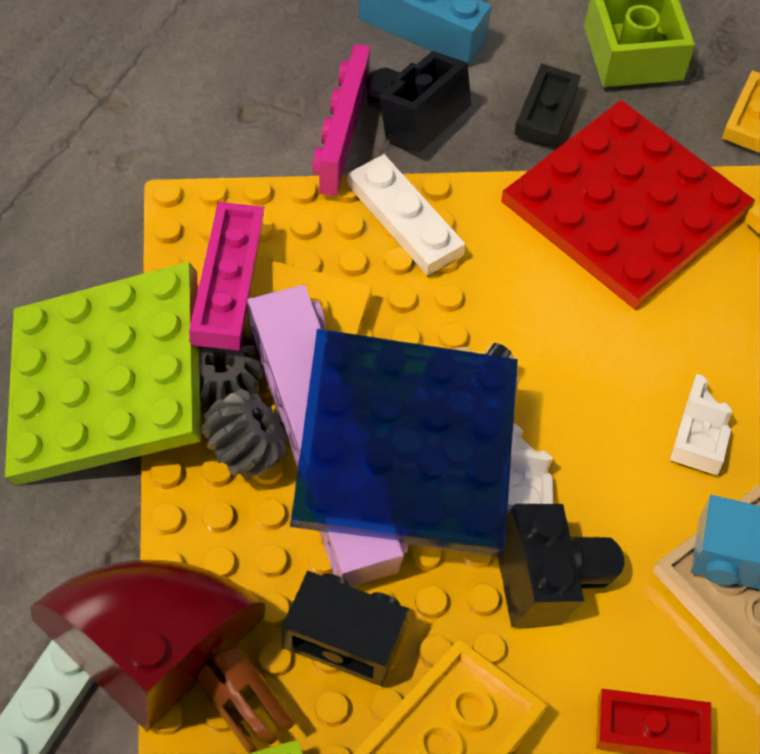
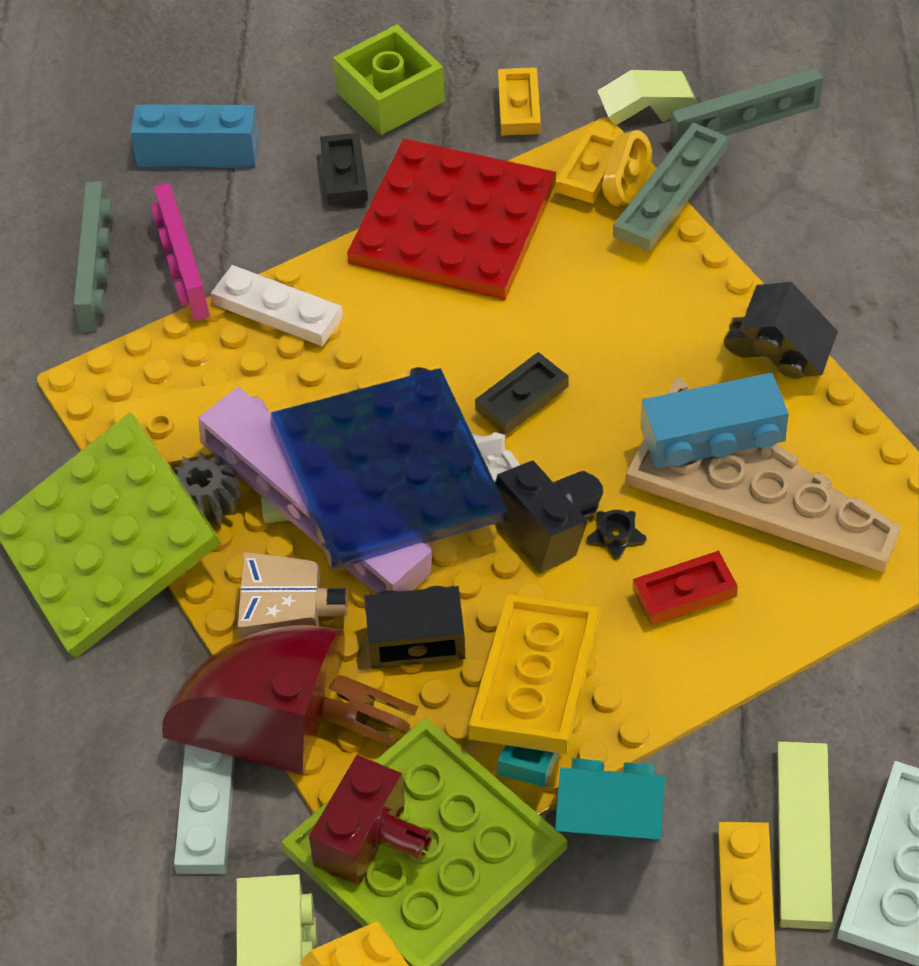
camera: 20 degrees left, 5 degrees down
(227, 277) = (166, 410): dark pink plate -> none
(231, 531) = (284, 593): none -> tan torso
(244, 434) = (252, 522): dark grey gear -> none
(257, 93) = (92, 266): none -> sand green plate
(420, 98) = (235, 209): black brick -> none
(596, 419) = (521, 393): none -> pearl dark grey plate
(621, 608) = (619, 521): none -> black plate
(702, 430) = (608, 364): white slope -> none

